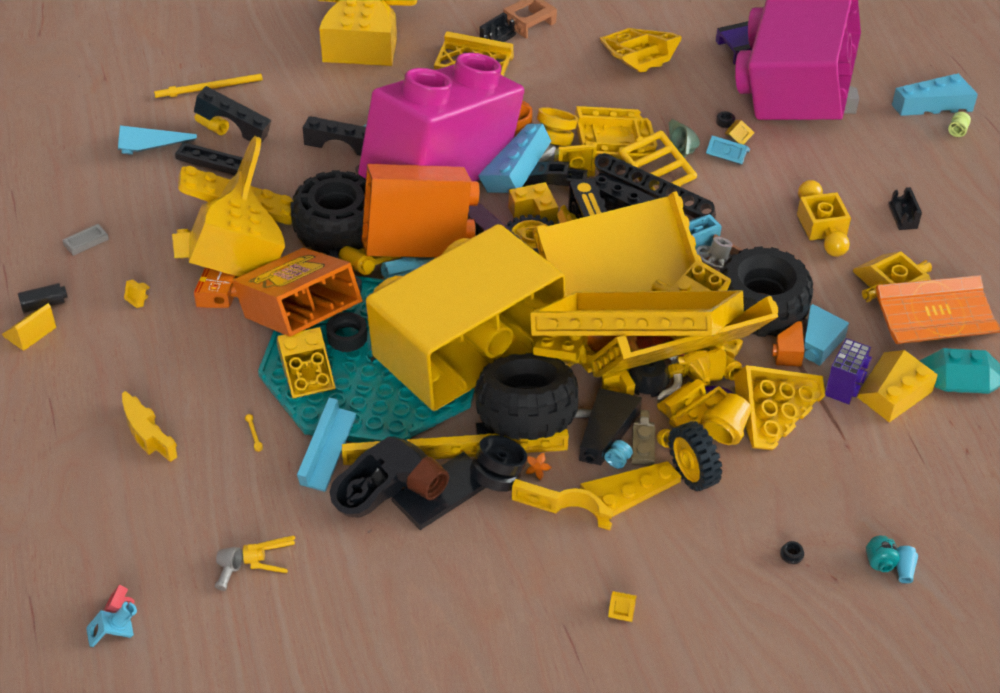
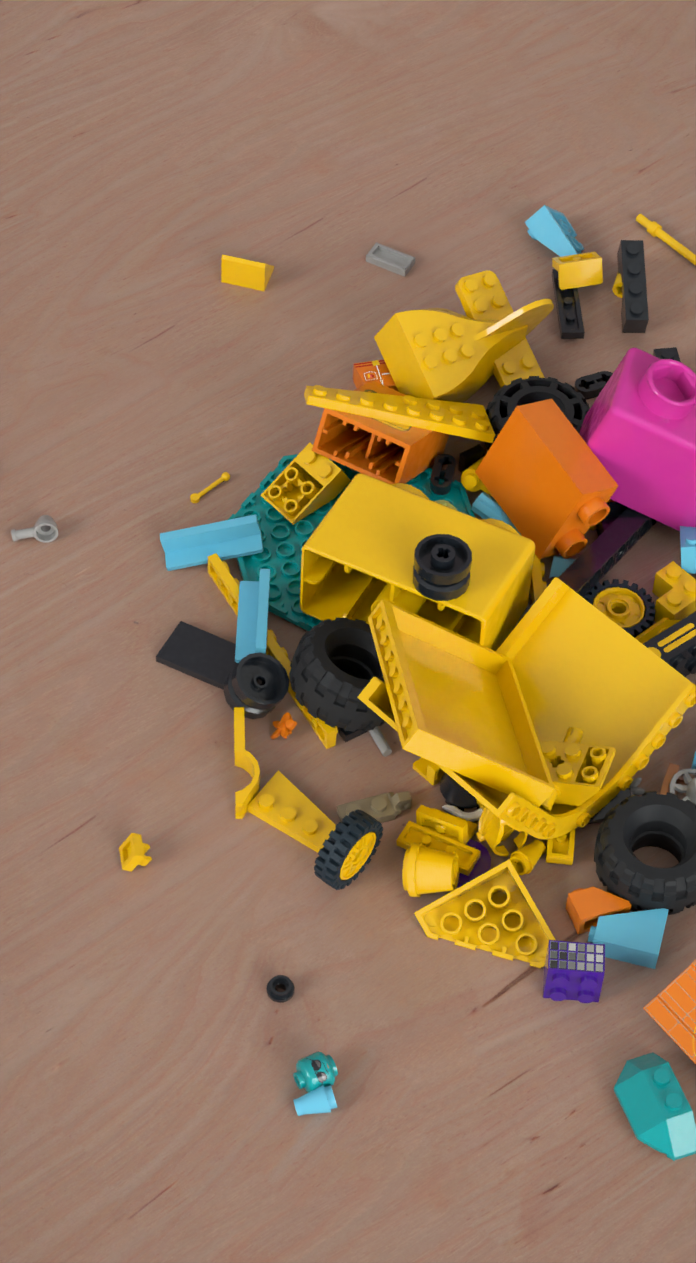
camera: 65 degrees right, 5 degrees up
(36, 298) = (288, 261): black brick -> none
(136, 293) = (336, 326): yellow tile -> none
(144, 429) = (168, 400): yellow slope -> none
(193, 134) = (578, 270): none -> yellow panel
(256, 552) = (61, 545): yellow plant -> none
(296, 259) = (435, 415): none -> yellow wing
(299, 175) = (592, 384): none -> black beam
(383, 473) = (194, 597): black piece -> none
(434, 437) = (252, 616): none -> medium azure panel
(510, 272) = (442, 567): none -> black wheel
(608, 422) = (368, 768): black slope -> none
(618, 454) = (334, 790): medium azure wheel -> none
(664, 433) = (387, 822): yellow hinge -> none
(896, 384) = (591, 1035): yellow wedge -> none

